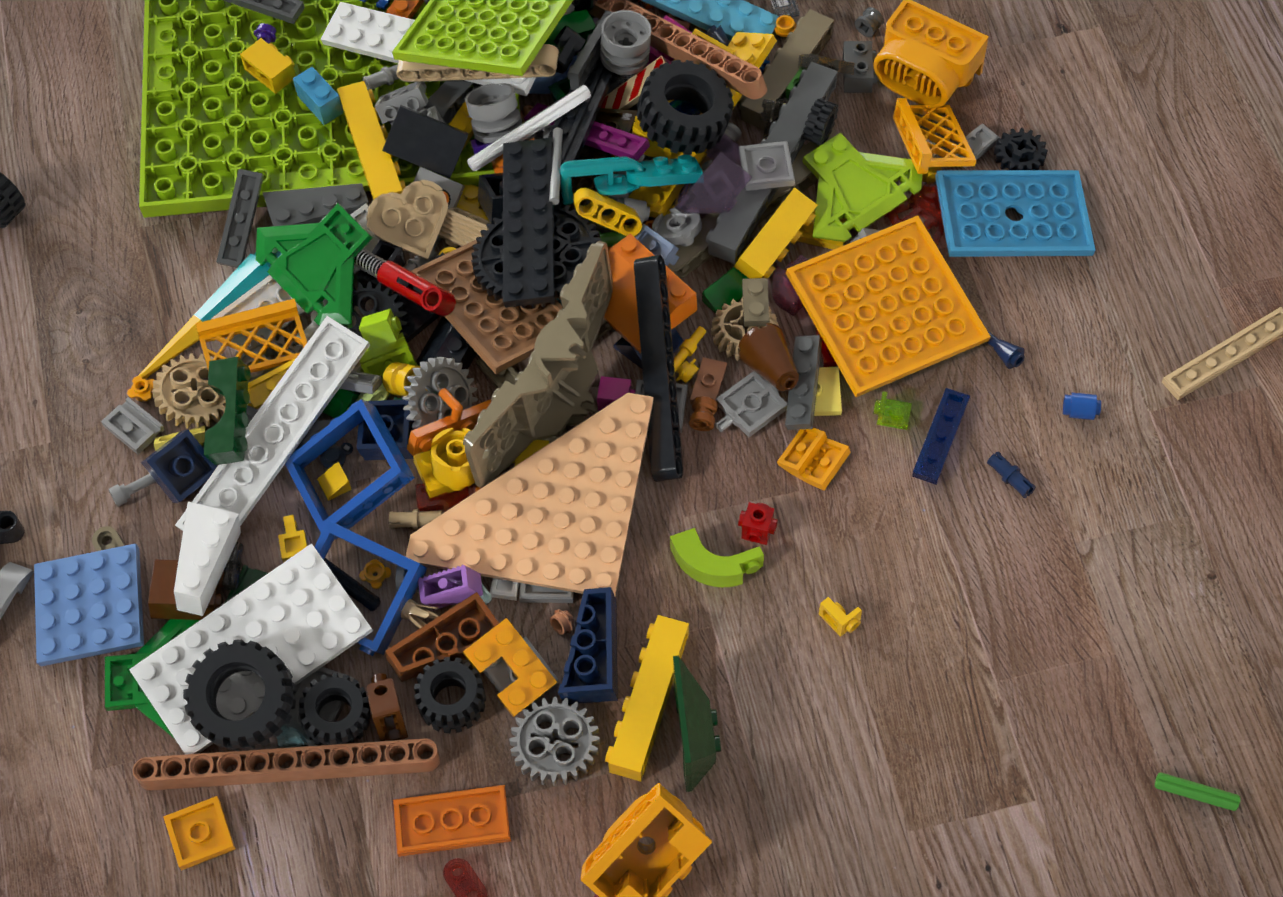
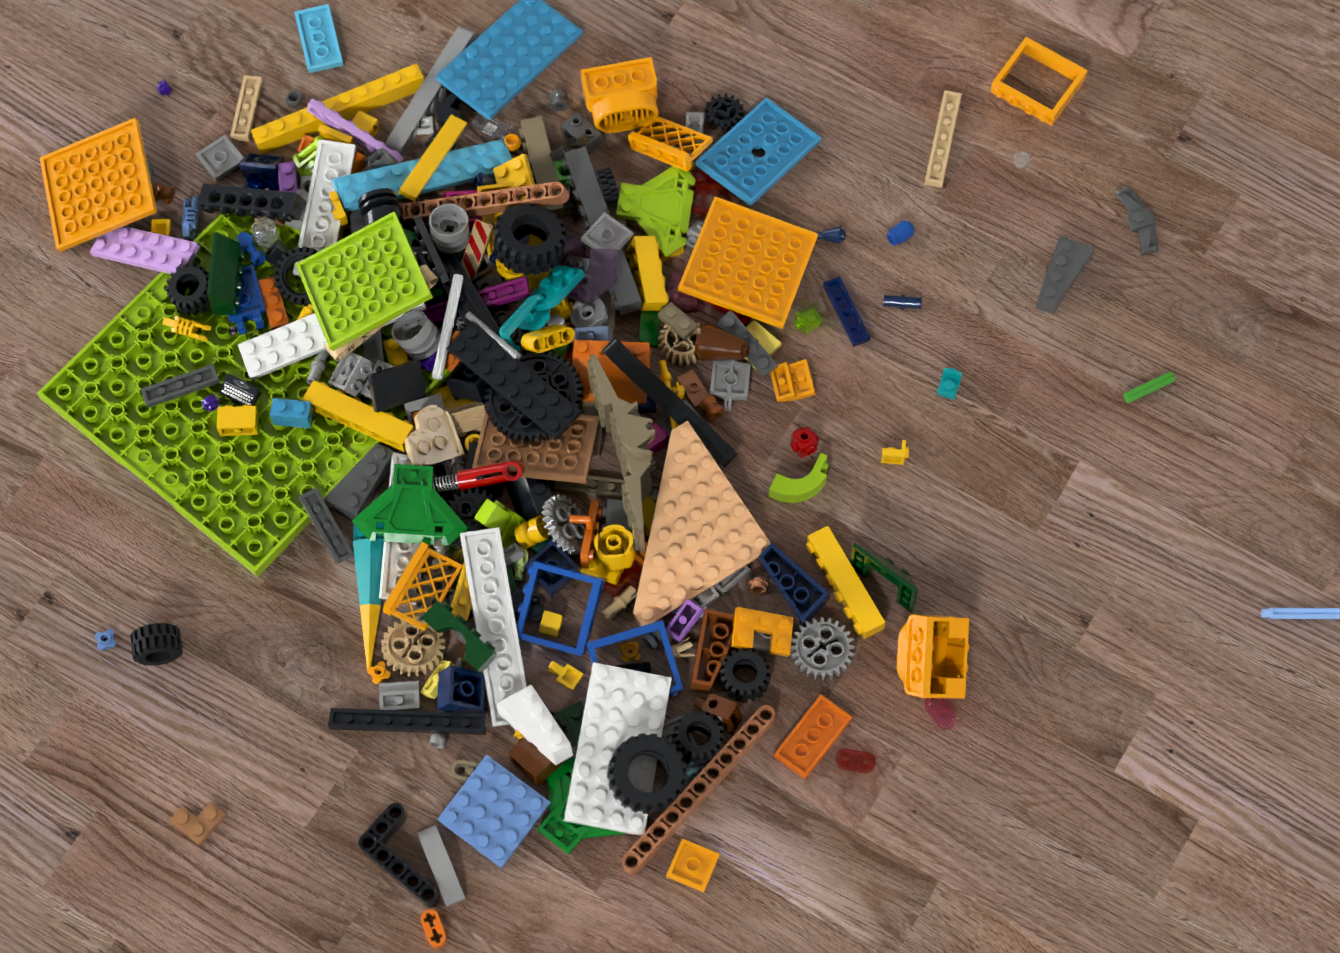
camera: 45 degrees left, 5 degrees up
(112, 453) = (408, 721): none -> black plate
(300, 44) = (239, 390): none -> slope
(974, 597) = (949, 383): none -> teal bracket
(1221, 587) = (1065, 267): none -> dark grey wedge

